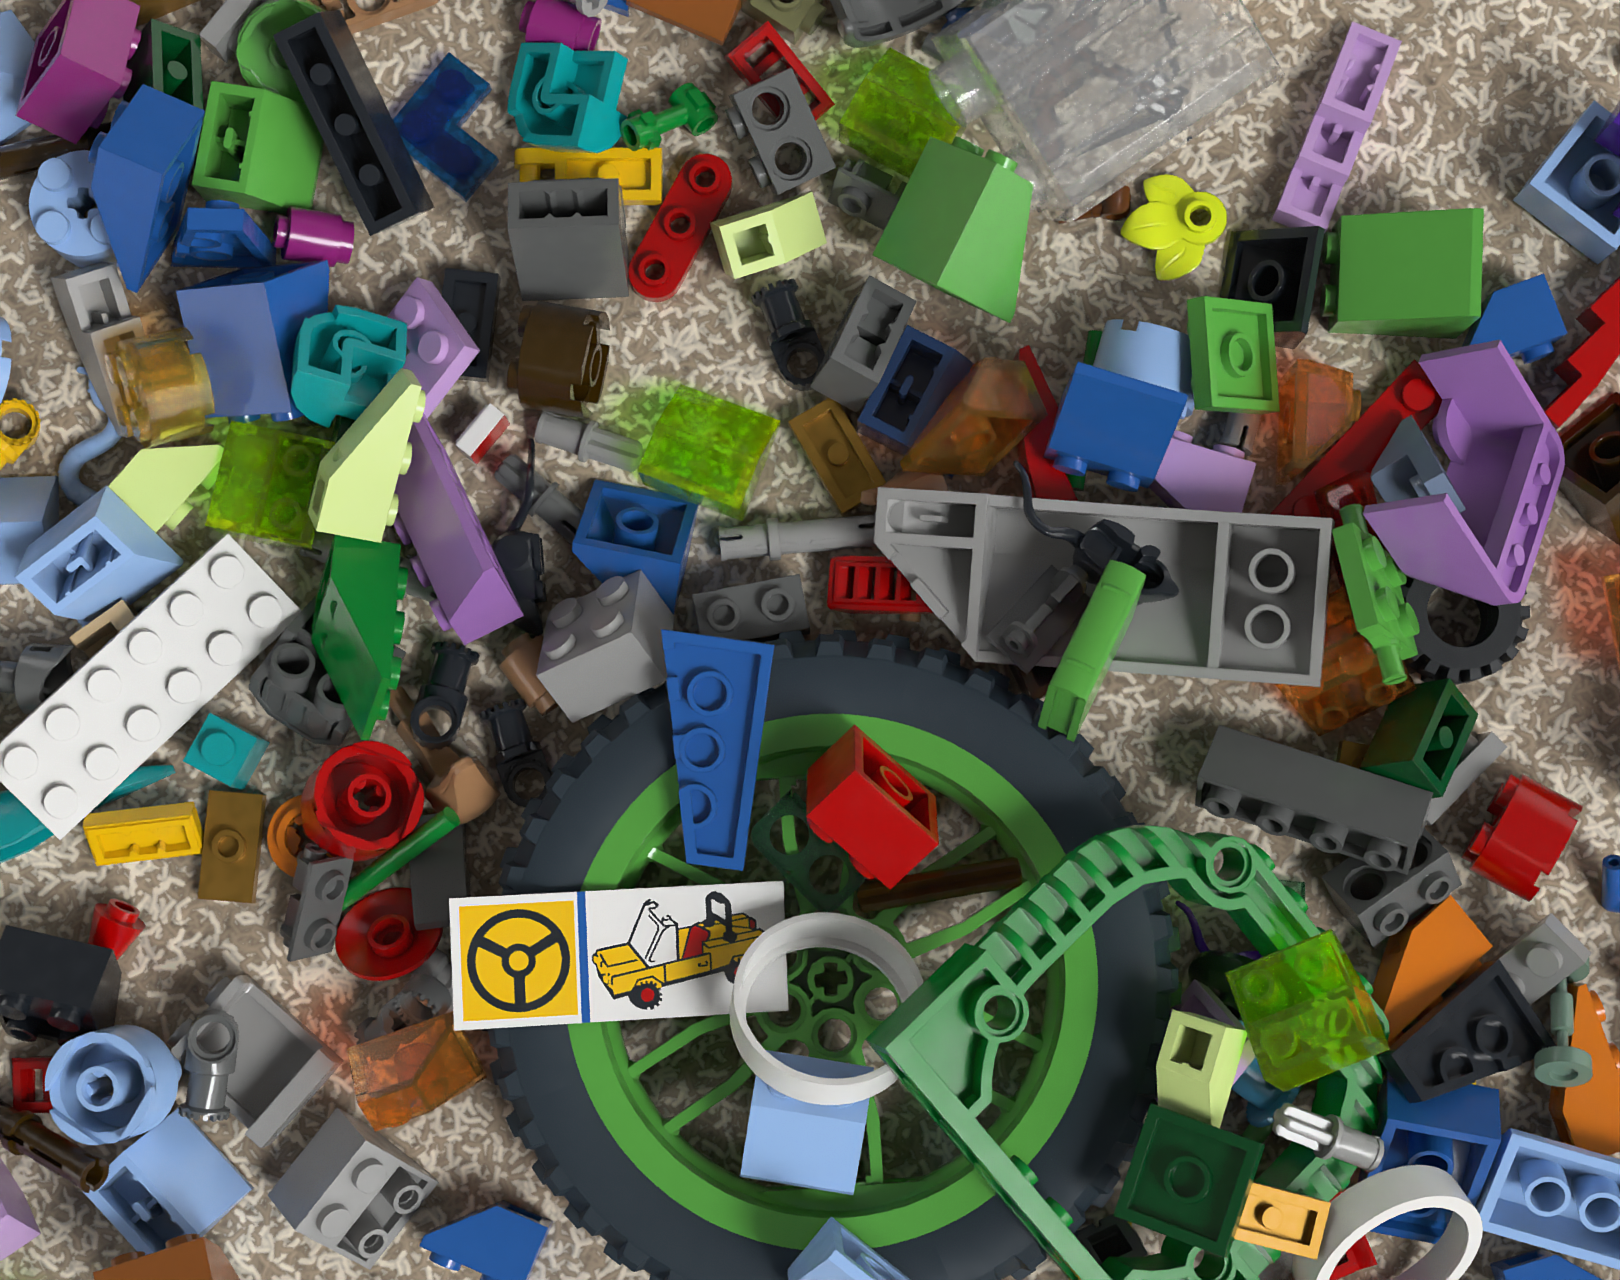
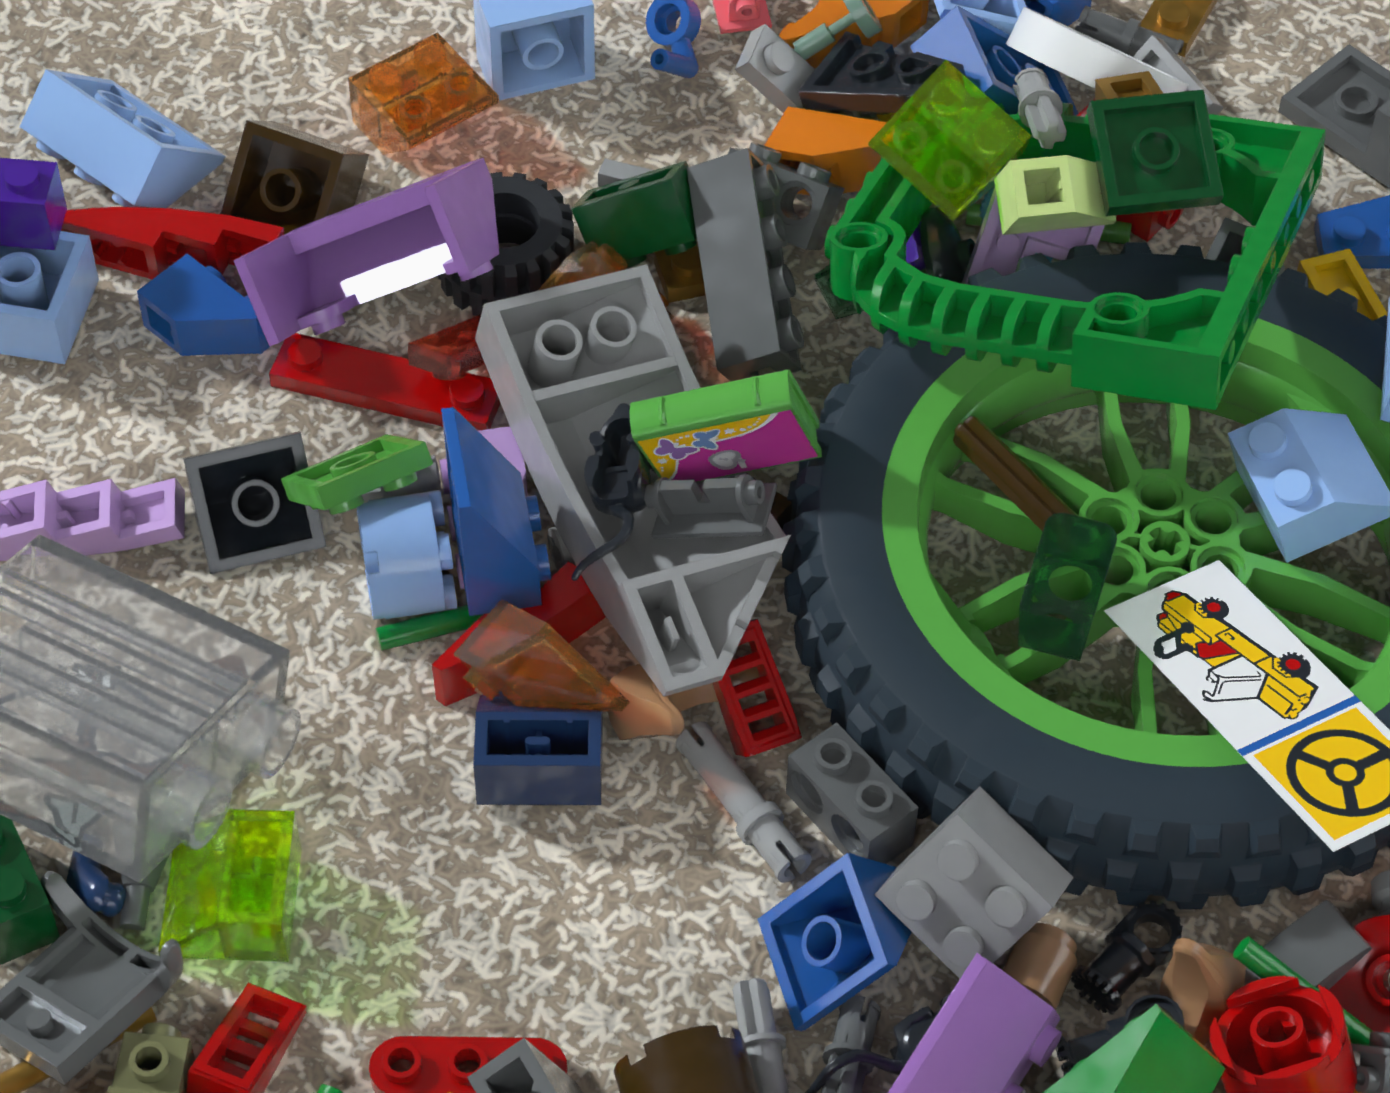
camera: 120 degrees left, 30 degrees down
(708, 451) = (704, 912): clear neon green slope -> none
(717, 725) = (1004, 698): blue wing -> none
(768, 235) = (443, 967): yellowish green slope -> none
(788, 329) = (529, 905): black connector -> none
(792, 125) = (312, 1000): dark grey brick -> none
(812, 931) = (1151, 431): white piece -> none
(836, 454) = (637, 804): pearl gold plate -> none
(863, 192) = (340, 857): dark grey hinge -> none
(863, 344) = (512, 809): dark grey brick -> none
(871, 808) = (994, 528): red brick -> none
(962, 225) = (342, 748): bright green slope -> none
(1167, 226) = (244, 602): neon yellow plate -> none
(1314, 412) = (390, 404): clear orange slope -> none
(1376, 594) = (546, 245): bright green plate -> none
(1404, 273) = (184, 383): bright green slope -> none
(1411, 468) = (379, 313): sand blue slope -> none
(1524, 835) = (676, 116): red brick -> none

